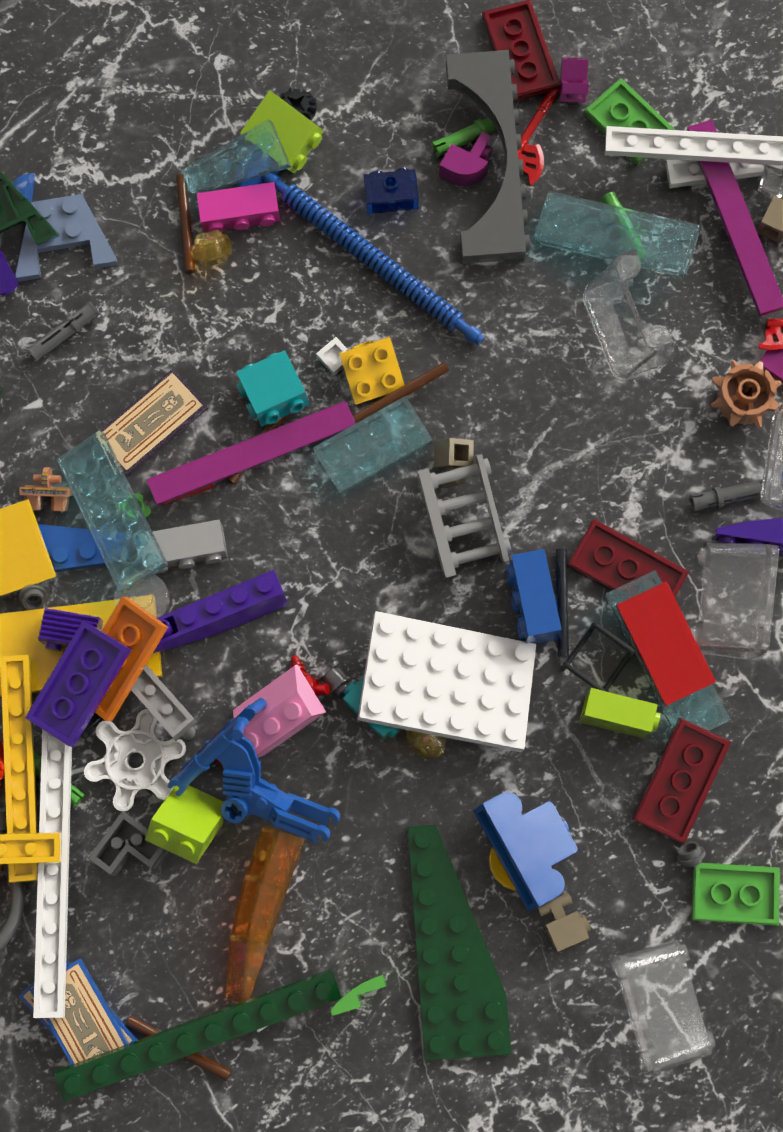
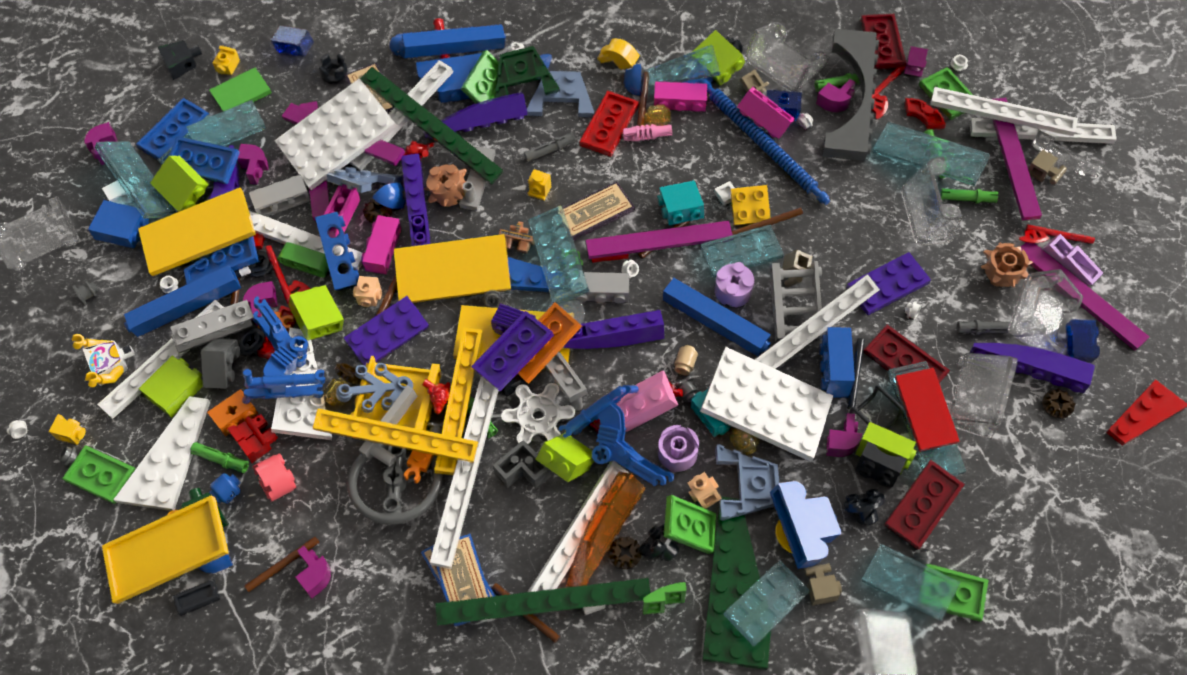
camera: 10 degrees right, 15 degrees down
(61, 399) = (539, 185): none -> yellow brick
(134, 152) = (620, 52): none -> yellow brick
(142, 272) = (608, 123): none -> red tile
(164, 192) = (632, 79): none -> blue brick
(200, 278) = (646, 132): none -> bright pink hinge
(215, 947) = (565, 551): none -> white plate
(219, 507) = (630, 267): none -> white plate
(307, 930) = (624, 561): none -> dark brown gear
(324, 634) = (685, 360): none -> tan brick
(337, 788) = (687, 448): none -> lavender brick
(338, 915) = (659, 545): none -> black plate
(343, 164) = (753, 80): none -> dark tan bracket
(355, 559) = (716, 317): none -> blue brick
(368, 215) = (765, 113): none -> dark pink brick
(369, 518) = (734, 284): none -> lavender brick
(373, 883) = (690, 524): none -> bright green tile
(377, 113) = (781, 61): none -> clear windscreen
(384, 825) = (704, 490): none -> light nougat brick
(428, 211) = (805, 120): none -> white plate
(452, 796) = (755, 482): none -> sand blue wing
(495, 969) = (766, 602): none -> clear light blue plate
(497, 548) = (818, 323): none -> white plate
(561, 713) = (844, 442): none -> magenta brick
(586, 453) = (894, 282): none -> dark purple plate
(593, 159) = (928, 115): none -> red tile
(603, 799) = (865, 505): none -> black plate
(604, 739) = (879, 465): none -> black brick
(626, 489) = (912, 310): none -> white plate
(640, 62) = (959, 62): none -> white plate
(679, 896) = (911, 582): none -> clear light blue plate
(680, 289) = (969, 195): none -> bright green pin

